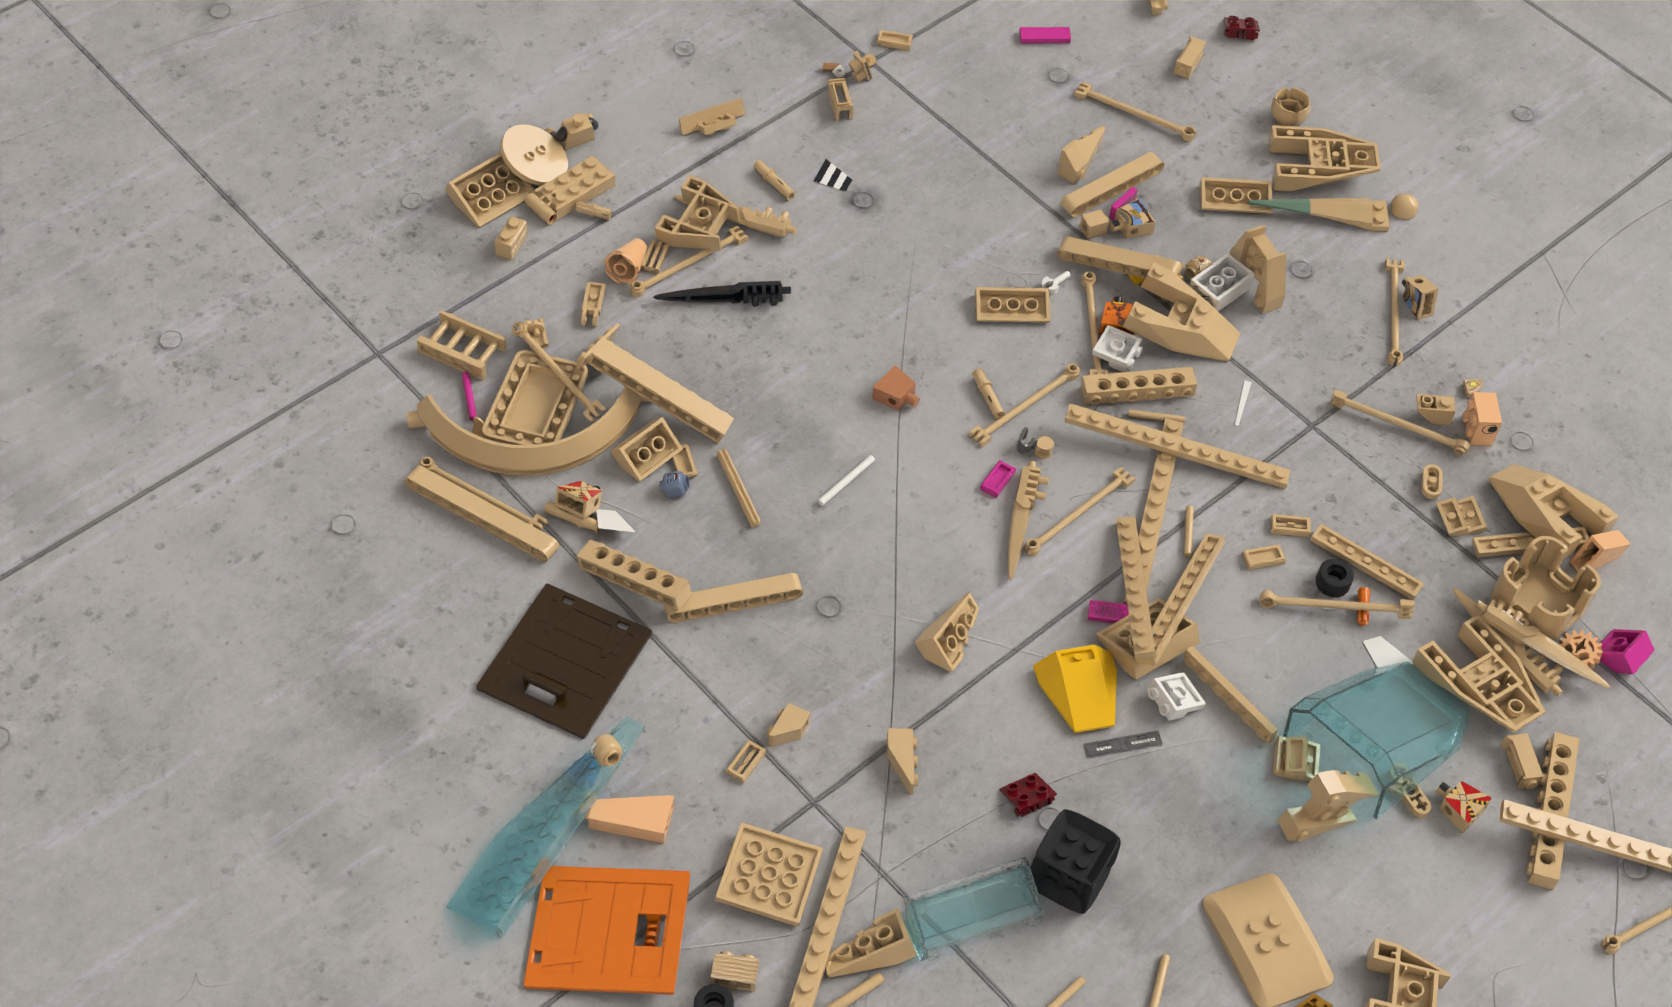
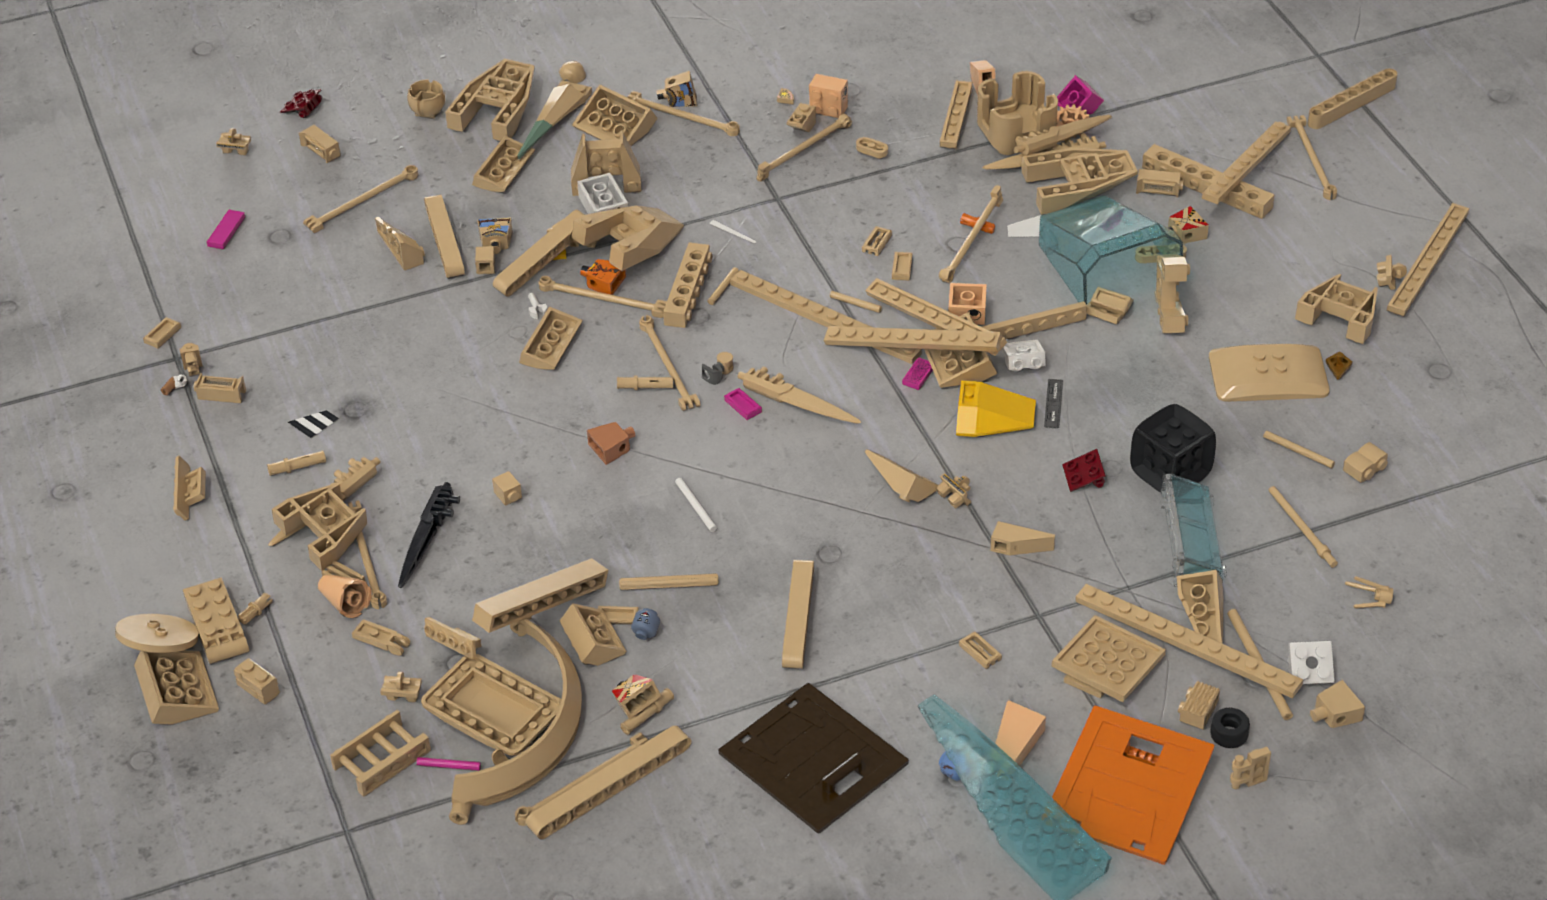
camera: 65 degrees left, 10 degrees down
(575, 130) = (139, 593): tan torso -> none
(591, 406) = (527, 658): tan hinge -> none
(606, 750) = (960, 718): tan head -> none
(612, 520) = (672, 679): white sticker -> none
(634, 574) = (757, 664): tan brick -> none
(789, 726) = (955, 606): tan slope -> none
(803, 332) = (507, 488): none -> tan brick
(952, 683) = (957, 489): none -> tan hips
(1118, 348) = (640, 283): white plate -> none
(1119, 480) = (782, 327): tan hinge -> none
(1127, 198) = (471, 234): dark pink tile -> none
(1177, 446) = (766, 279): tan plate -> none
(1196, 266) = (575, 203): tan head -> none
(1224, 625) = (968, 298): none -> light nougat brick
(1333, 587) = (944, 229): black tyre -> none
(1350, 258) = (610, 113): none -> tan slope
(1367, 562) = (934, 207): tan plate -> none
(1461, 516) = (912, 142): tan slope -> none
(1542, 501) = (931, 89): tan wedge -> none

